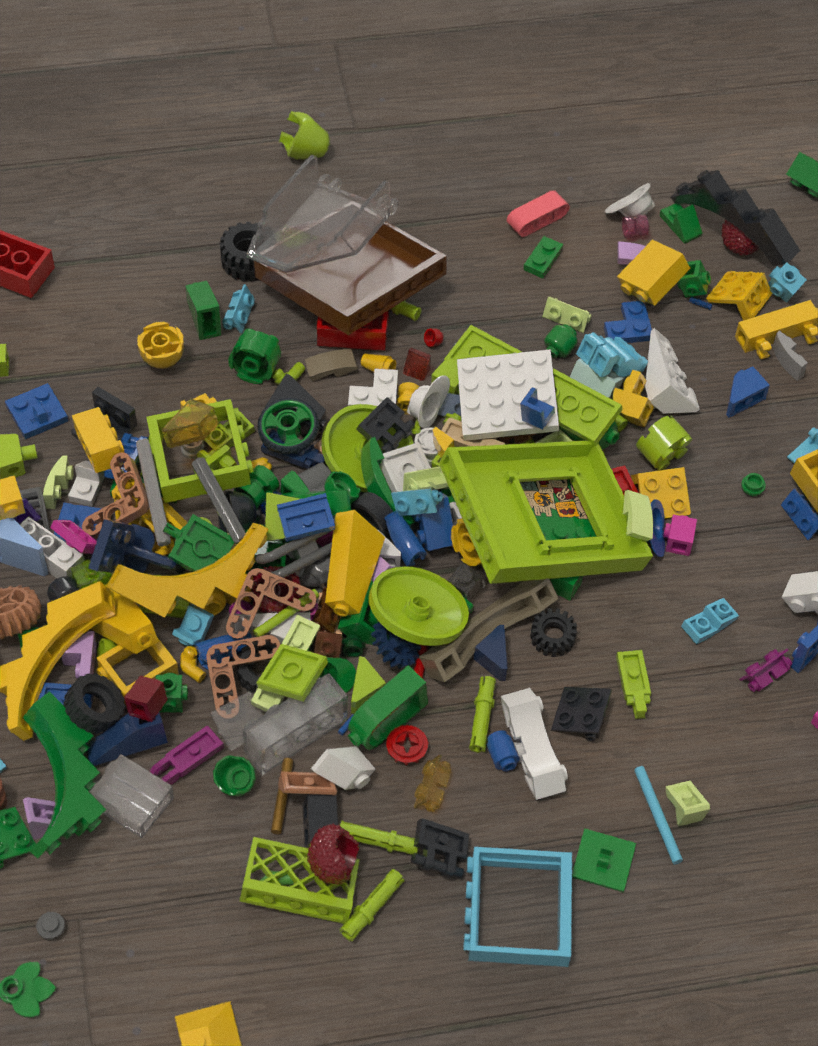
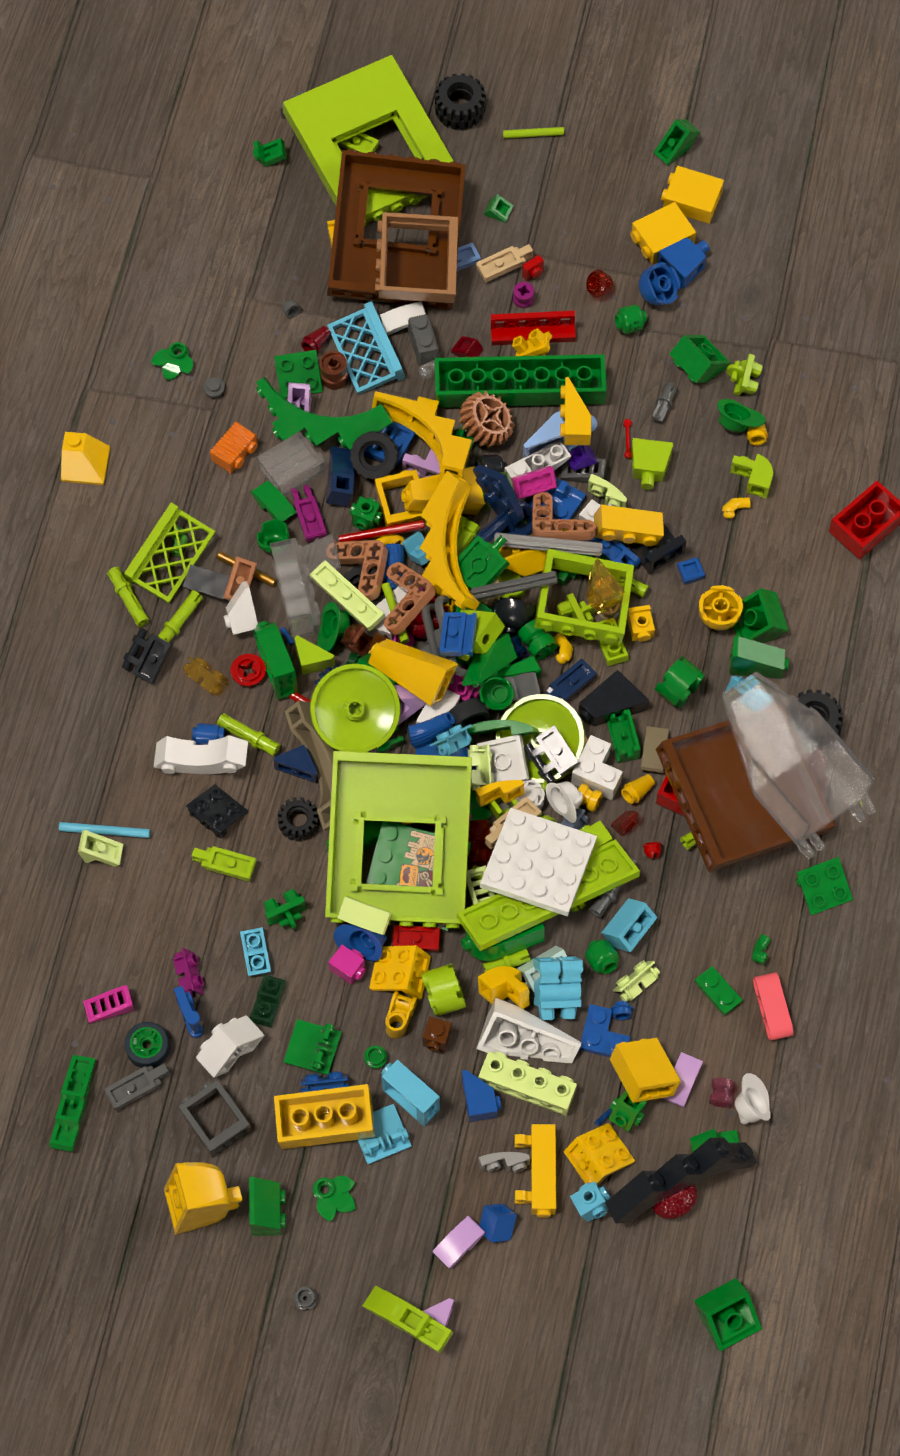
camera: 115 degrees right, 10 degrees up
(31, 378) = (733, 504): none -> yellow arm
(36, 411) = (695, 501): blue hinge -> none
(121, 390) = (690, 570): none -> blue tile
(130, 865) = (234, 447): none -> orange brick
(145, 698) = (354, 483): dark red brick -> none
(154, 309) = (761, 617): none -> green slope
(185, 671) = (383, 531): none -> red bar
(186, 796) = (273, 500): none -> green slope
(288, 434) = (589, 686): green wheel -> none
(292, 672) = (328, 588): lime plate -> none
(295, 372) = (654, 708): lime arm -> none
(331, 386) = (624, 737): none -> green hinge
(332, 854) = (167, 570): dark red hair -> none
(409, 211) = (824, 885): none -> green hinge
(493, 237) = (760, 946): none -> green arm
(521, 327) = (629, 925): none -> medium azure brick
(528, 860) = (59, 724): medium azure window -> none
(535, 411) = (496, 861): blue panel -> none
(601, 315) = (622, 1010): none -> blue plate
(603, 860) = (88, 775): green piece -> none
(658, 605) = (286, 913): none -> green hips
(705, 476) = (400, 1011): none -> yellow piece
(707, 439) = (436, 1034): none -> reddish brown brick
(710, 361) = (528, 1083): none -> yellowish green brick
(754, 593) = (267, 1001): none -> clear green slope
(774, 538) = (312, 1046): none -> green hinge
(777, 435) = (410, 1092): none -> medium azure window

